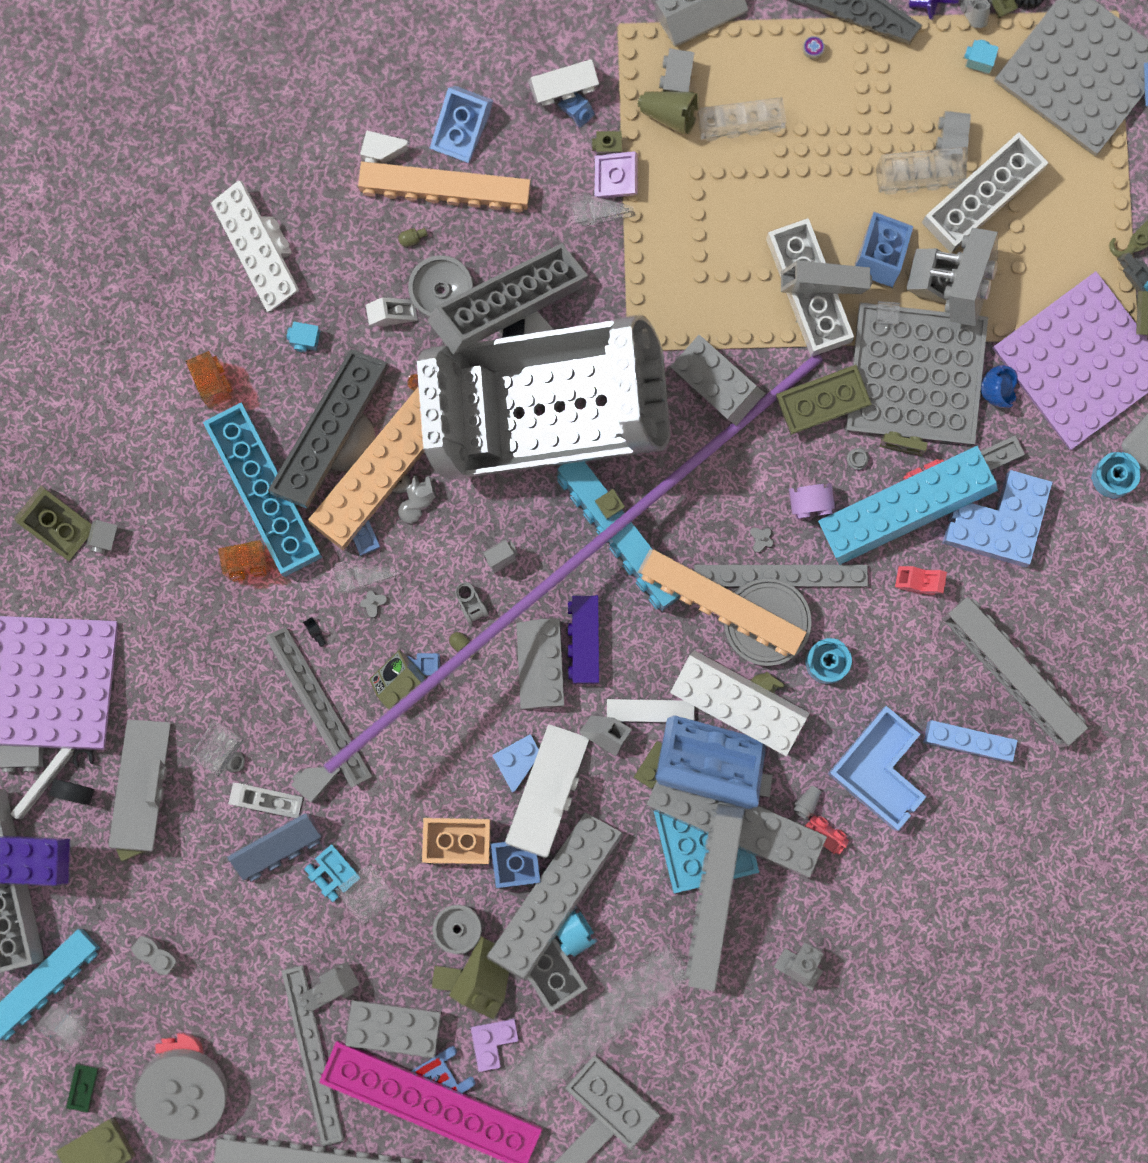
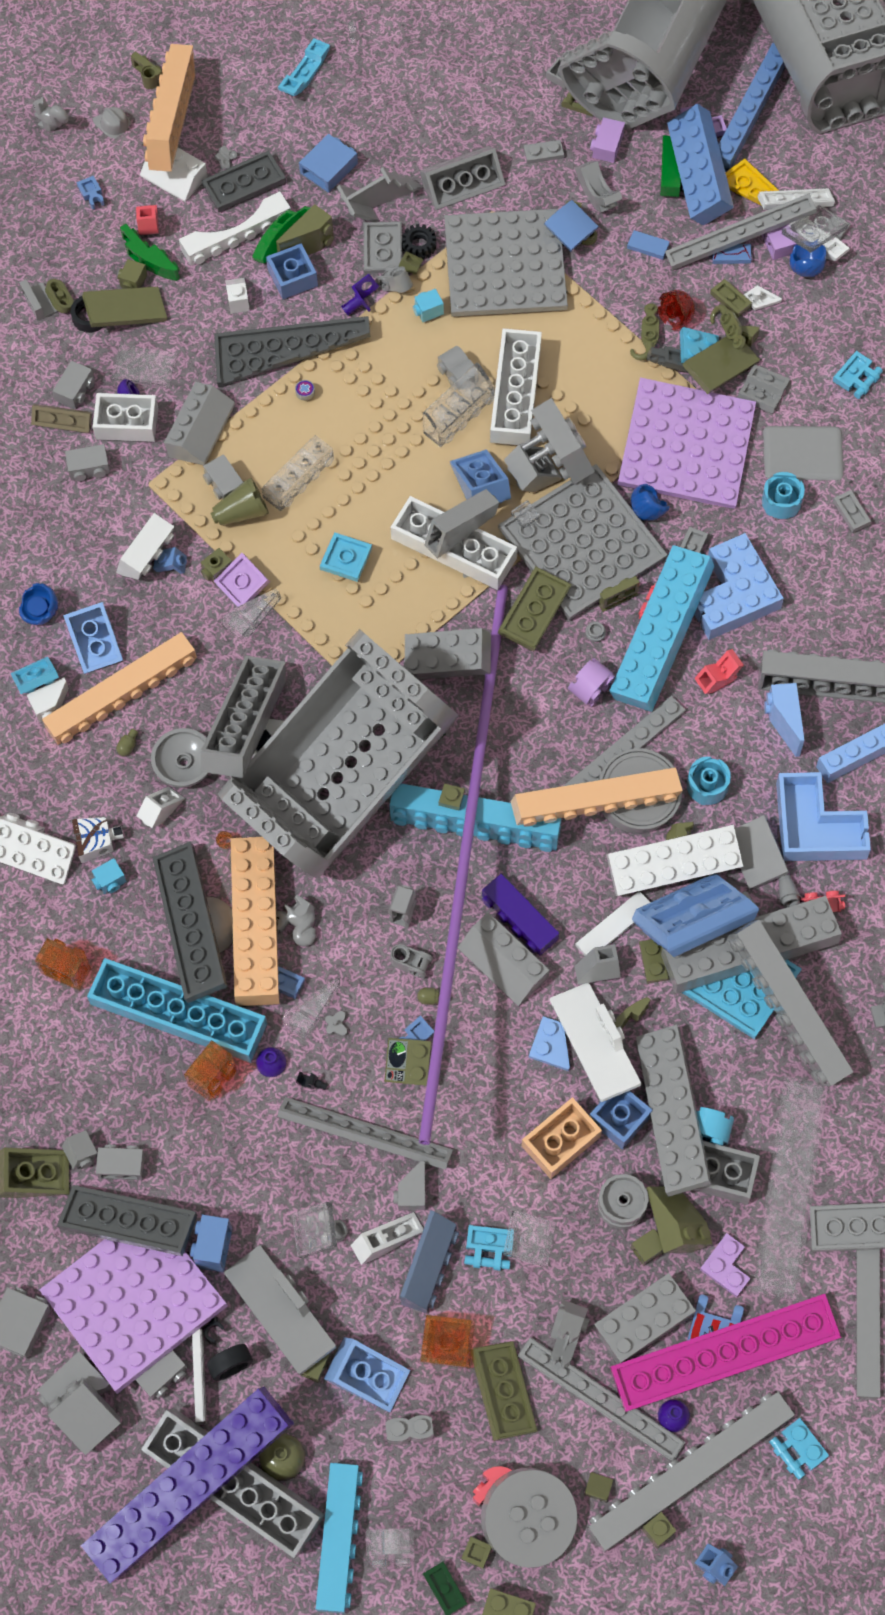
camera: 40 degrees left, 15 degrees down
(52, 897) = (283, 1458): none -> olive cylinder
(88, 621) = (127, 1220): none -> dark grey plate
(122, 571) = (120, 1162): none -> light grey brick
(125, 1082) = (476, 1552): none -> olive plate
(133, 693) = (212, 1243): none -> medium blue brick
(161, 886) = (366, 1374): none -> light blue slope
(237, 917) = (447, 1341): none -> clear orange brick
(247, 987) = (503, 1391): none -> olive tile
(253, 1115) = (598, 1487): none -> olive slope
(299, 589) = (271, 1062): none -> dark purple brick
(320, 294) = (94, 837): none -> torso
(354, 1114) = (673, 1415): none -> dark purple brick
(387, 118) = (34, 675): none -> medium azure plate
(440, 60) = (38, 604): none -> blue piece
(602, 792) = (634, 1012): none -> olive slope
(715, 225) = (346, 557): none -> medium azure plate
(761, 538) = (580, 741): light grey piece -> none
(813, 752) = (759, 853): none -> light grey tile
(940, 659) = (785, 715): none -> light blue slope

